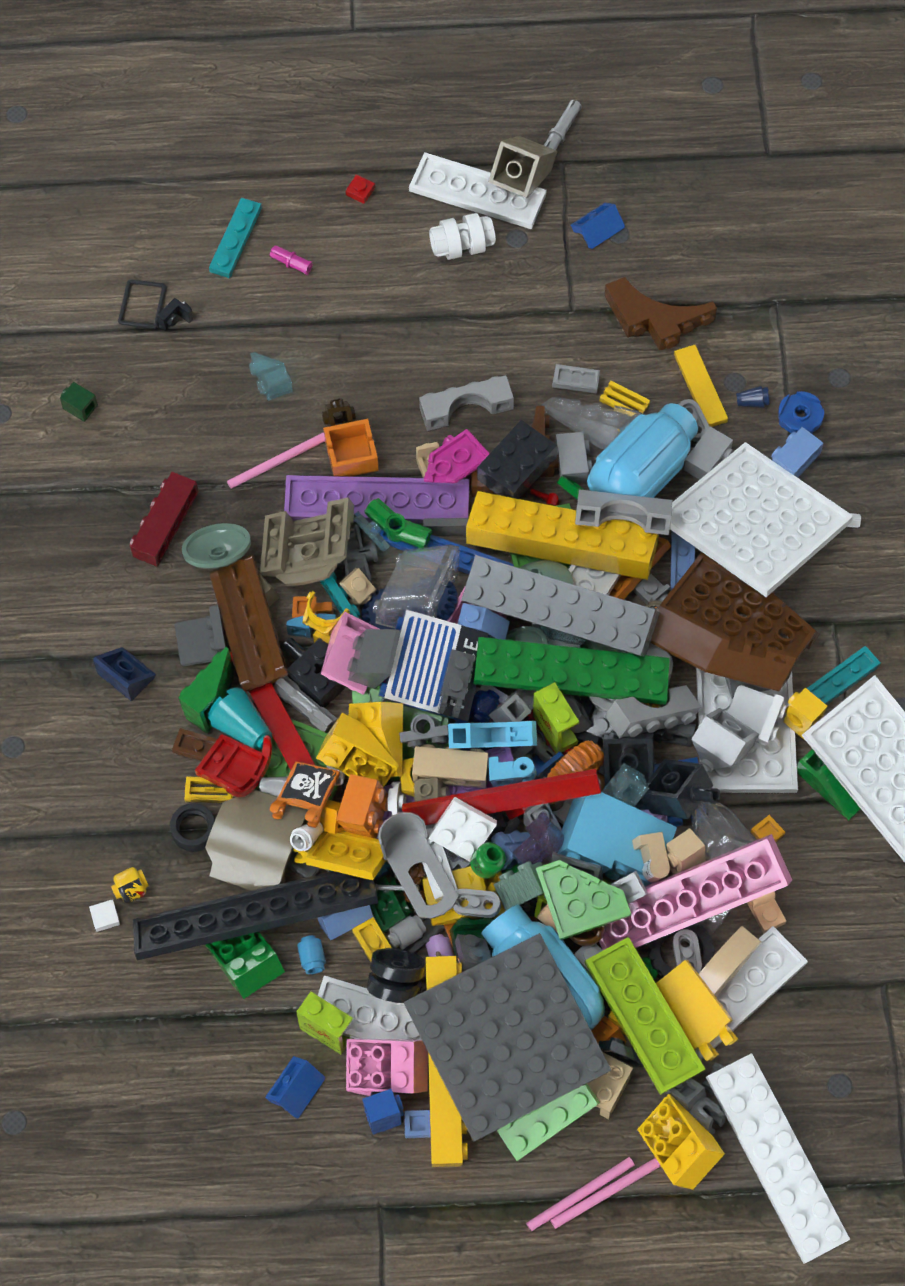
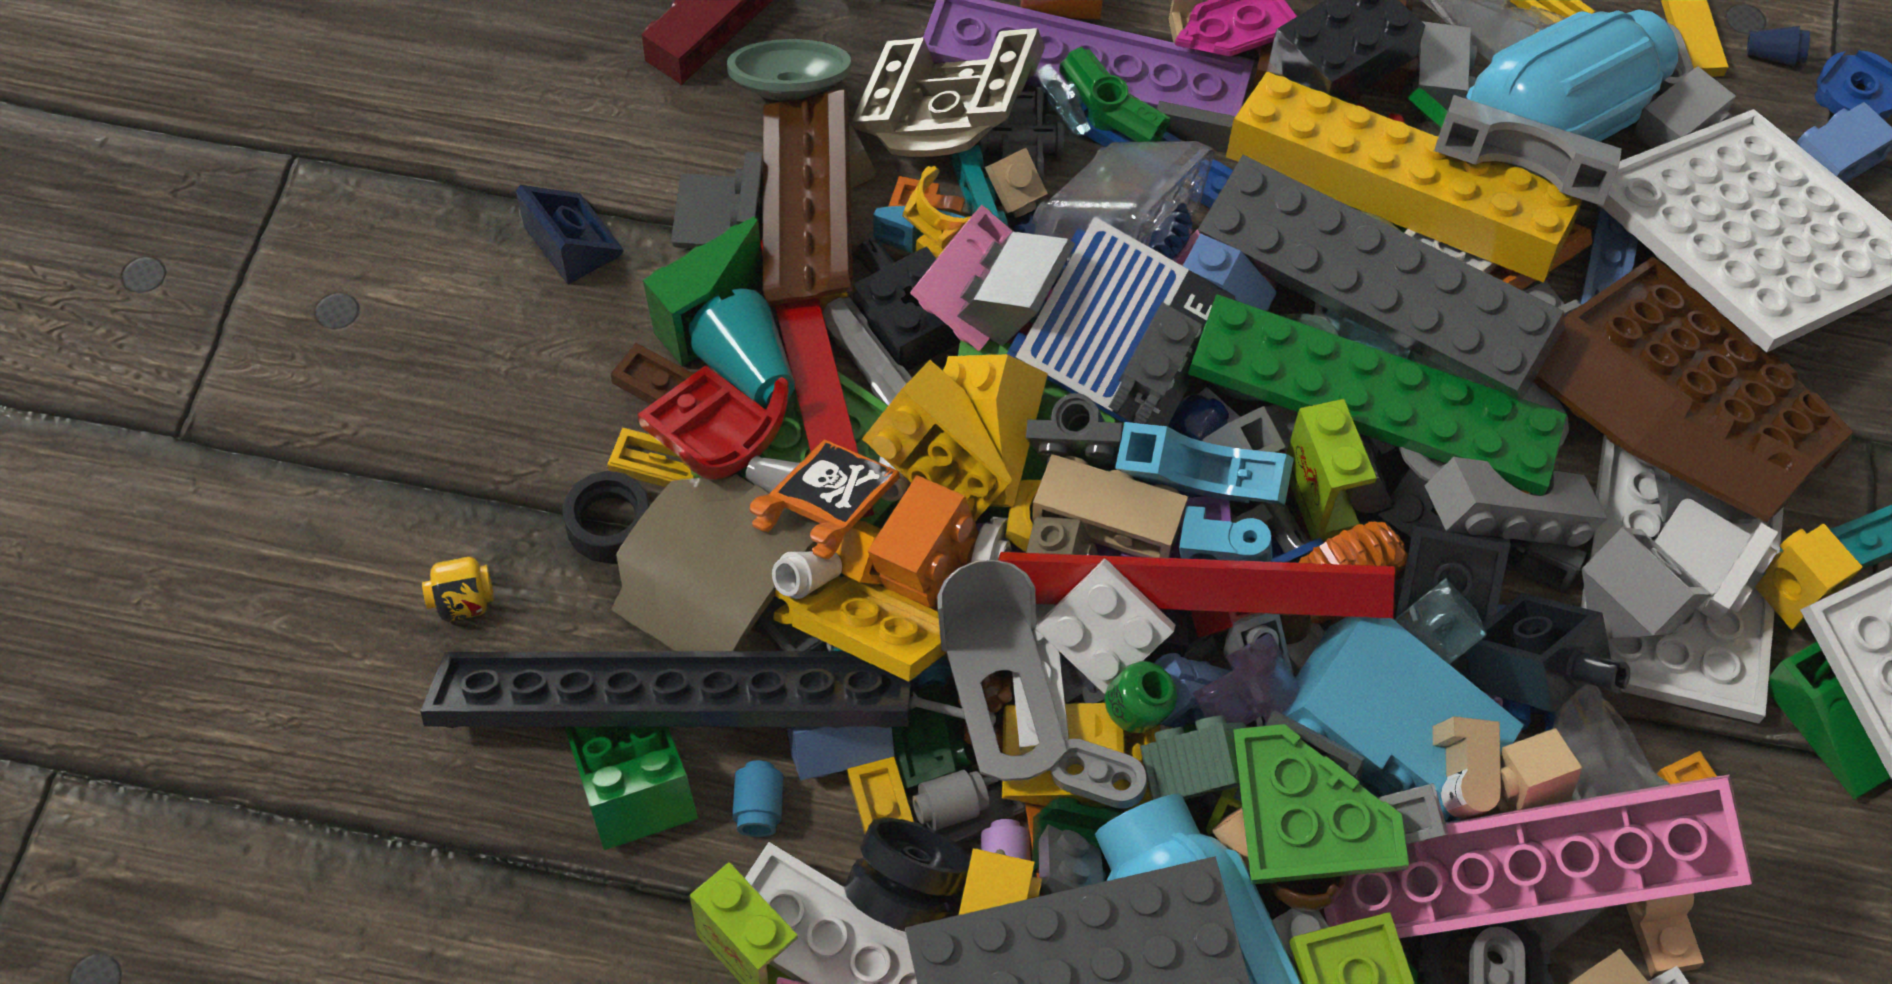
camera: 10 degrees right, 5 degrees down
(104, 915) = (397, 634): white tile -> none

